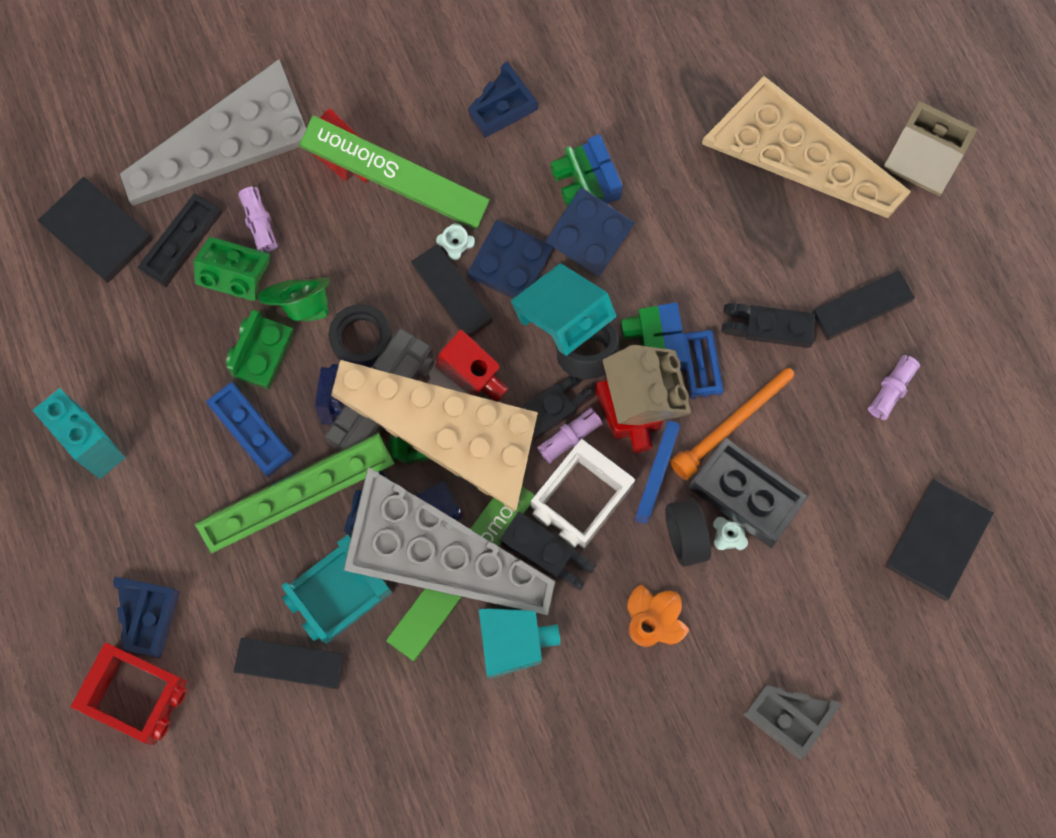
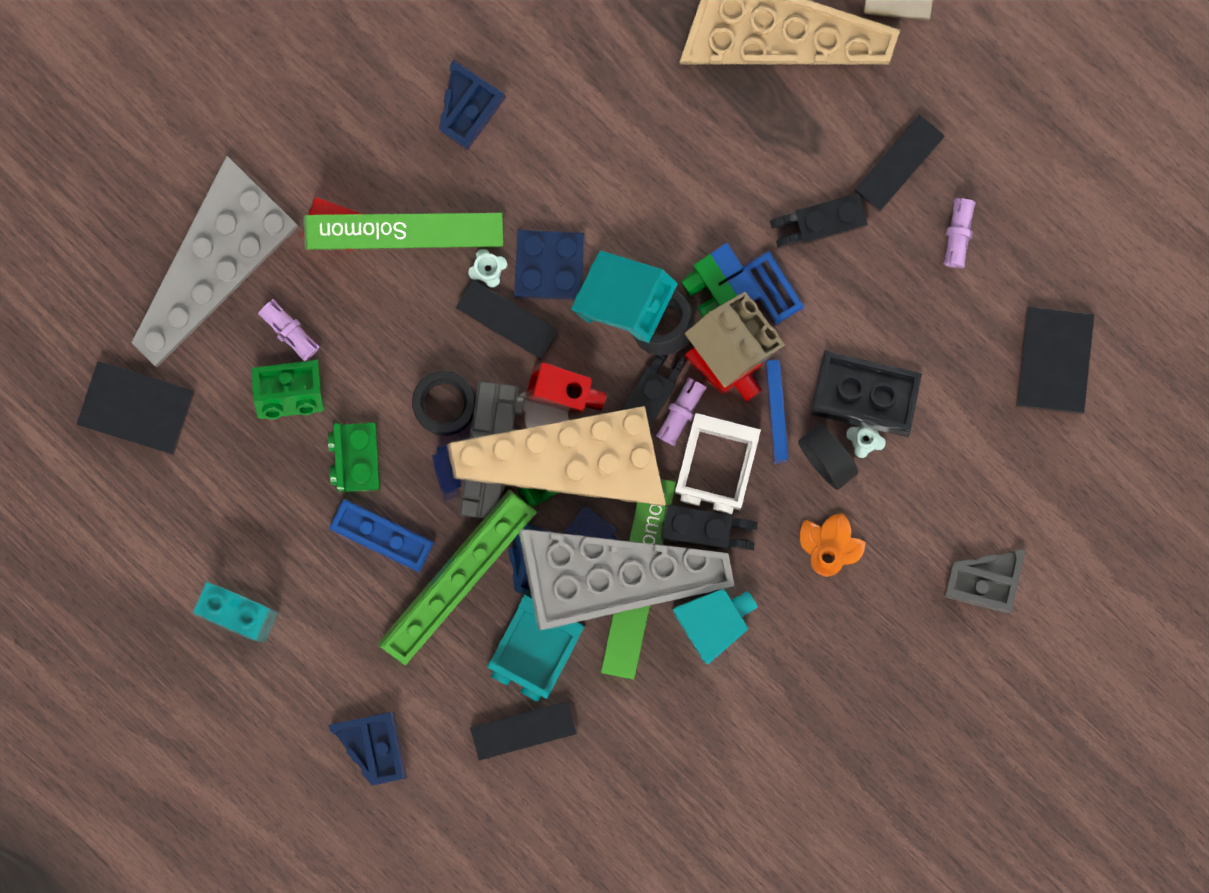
camera: 25 degrees left, 10 degrees up
(99, 679) = (362, 821): red window -> none
(179, 240) = (222, 382): black tile -> none
(299, 298) = (367, 390): green piece -> none
(588, 168) = (587, 143): hips -> none
(589, 231) = (613, 206): dark blue plate -> none
(686, 462) = (799, 389): orange piece -> none

